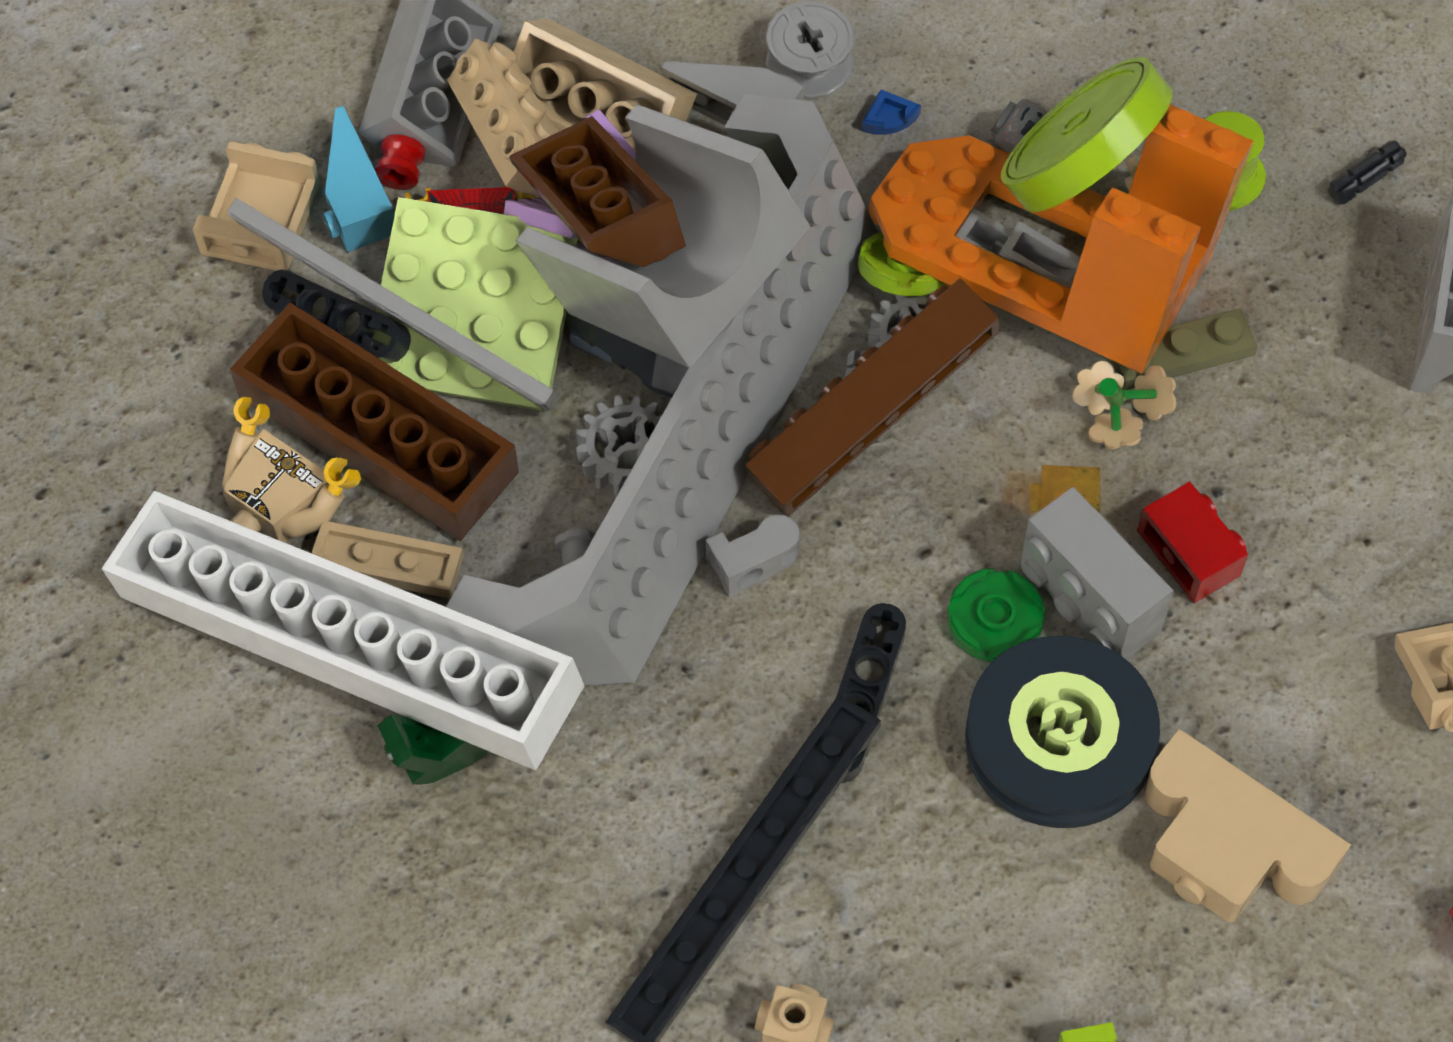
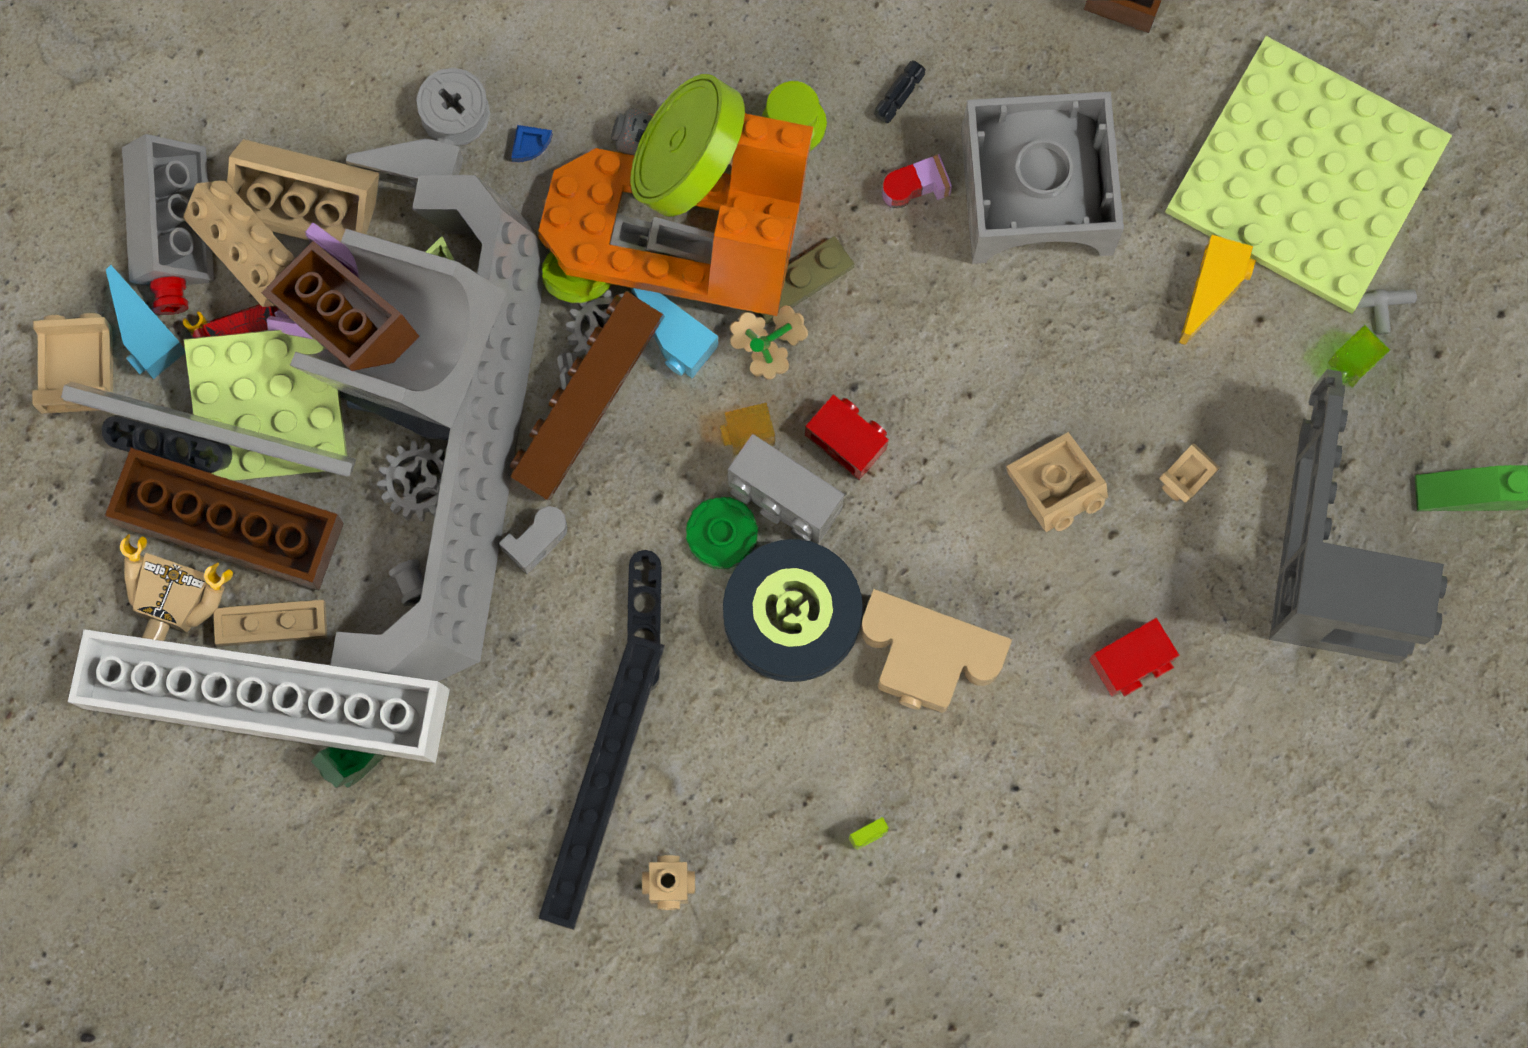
camera: 20 degrees left, 15 degrees up
(1014, 373) = (679, 336): none -> medium azure slope
(1362, 274) = (915, 181): none -> leg

